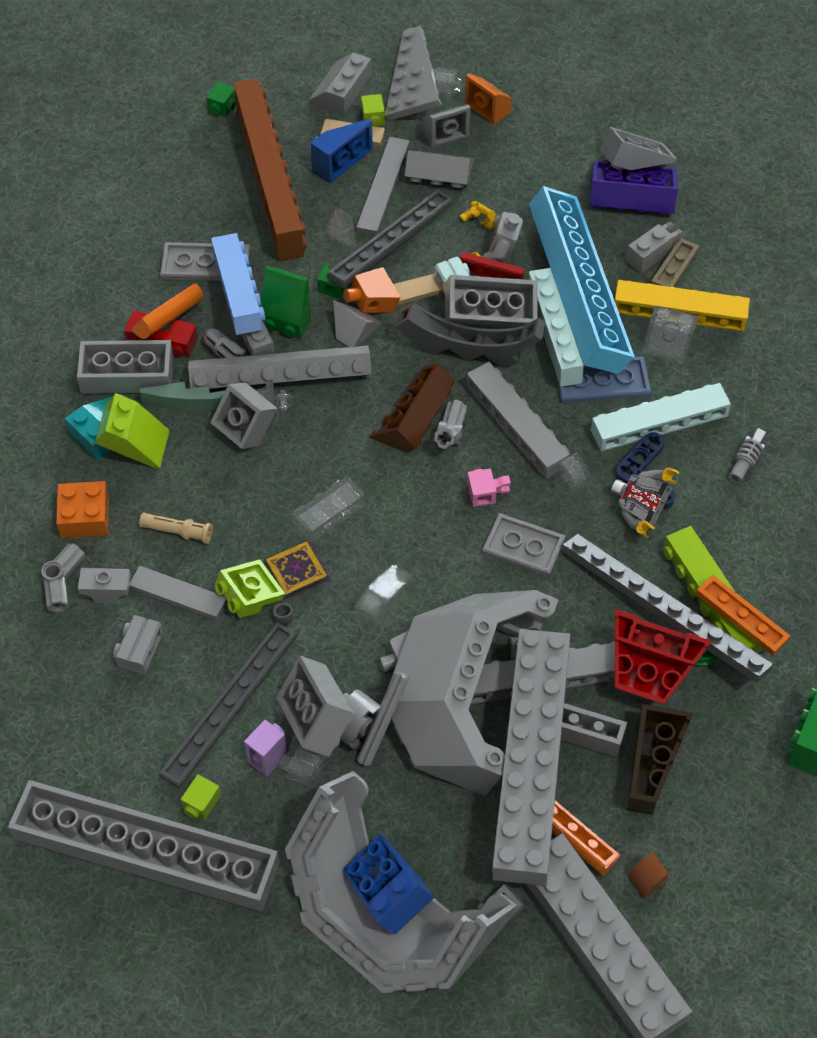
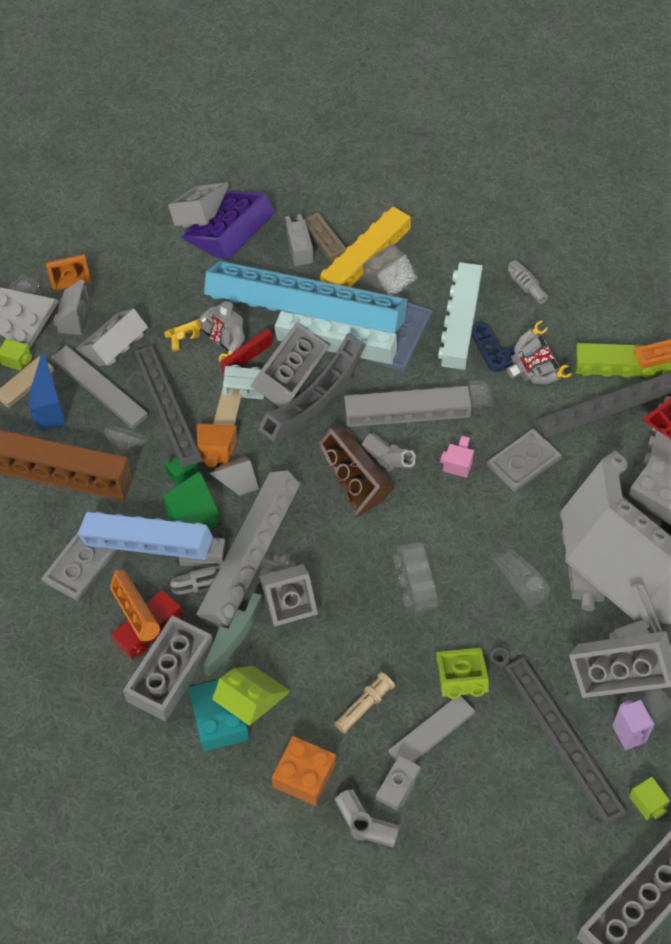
camera: 60 degrees left, 0 degrees up
(138, 644) = (472, 785): light grey brick -> none
(296, 569) = (458, 629): tile -> none

